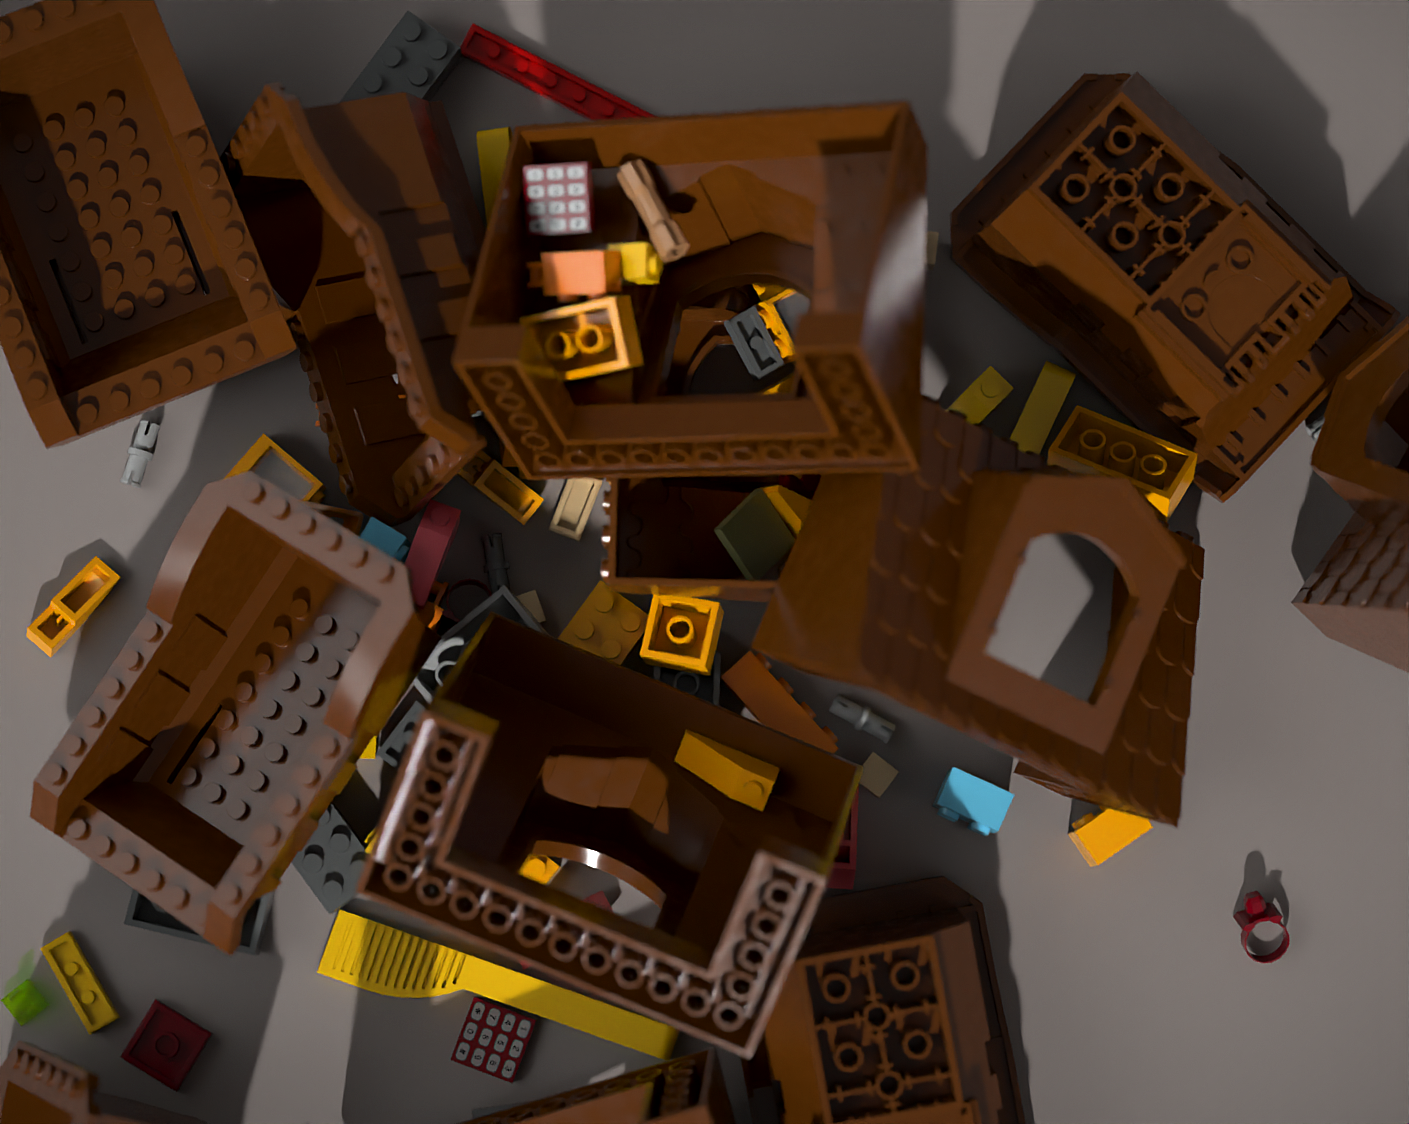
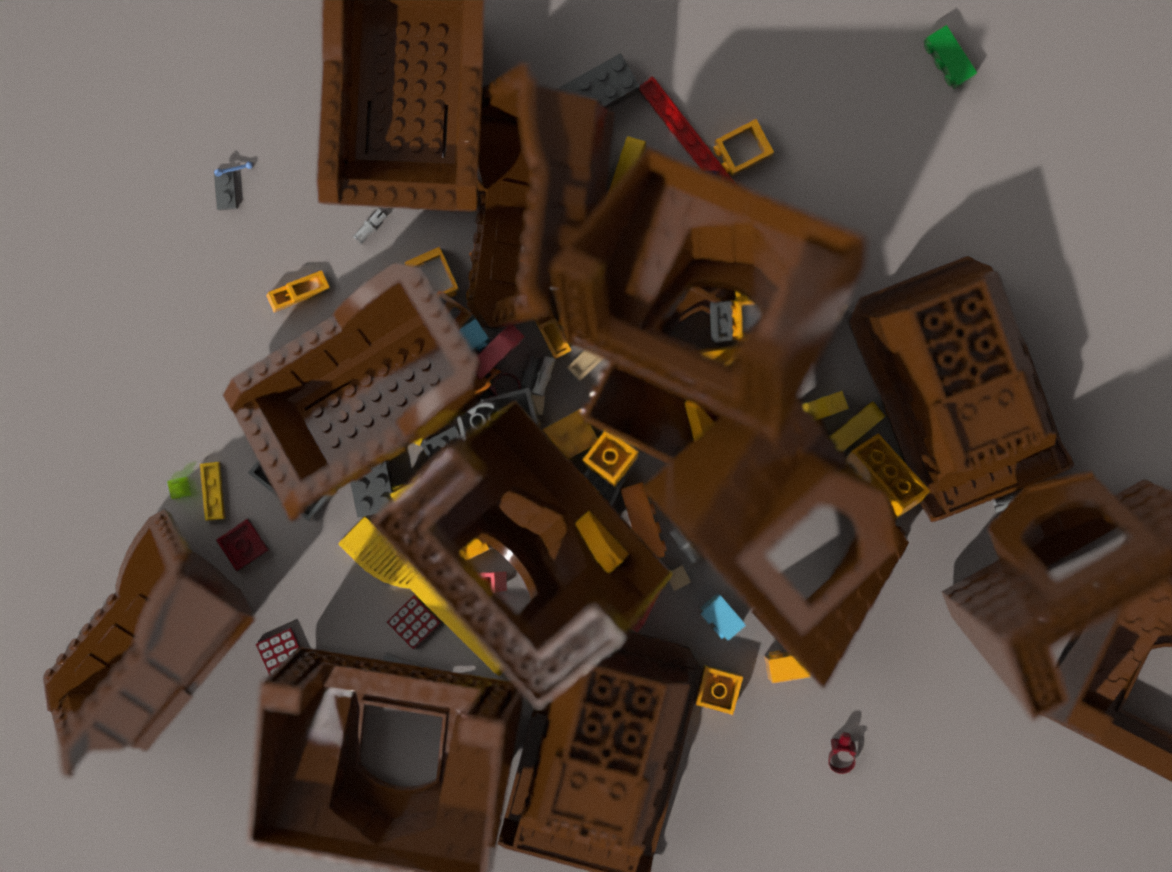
camera: 25 degrees right, 5 degrees up
(519, 558) = (544, 375): none -> white pin
(559, 199) = (652, 199): tile -> none
(577, 273) = (642, 244): orange brick -> none
(588, 337) = (631, 282): light orange brick -> none
(638, 263) = (676, 253): yellow brick -> none
(663, 68) = (743, 148): none -> window
(664, 231) = (699, 212): medium nougat axle -> none
(755, 535) = (673, 425): olive tile -> none
(1021, 918) = (718, 689): none -> light orange brick

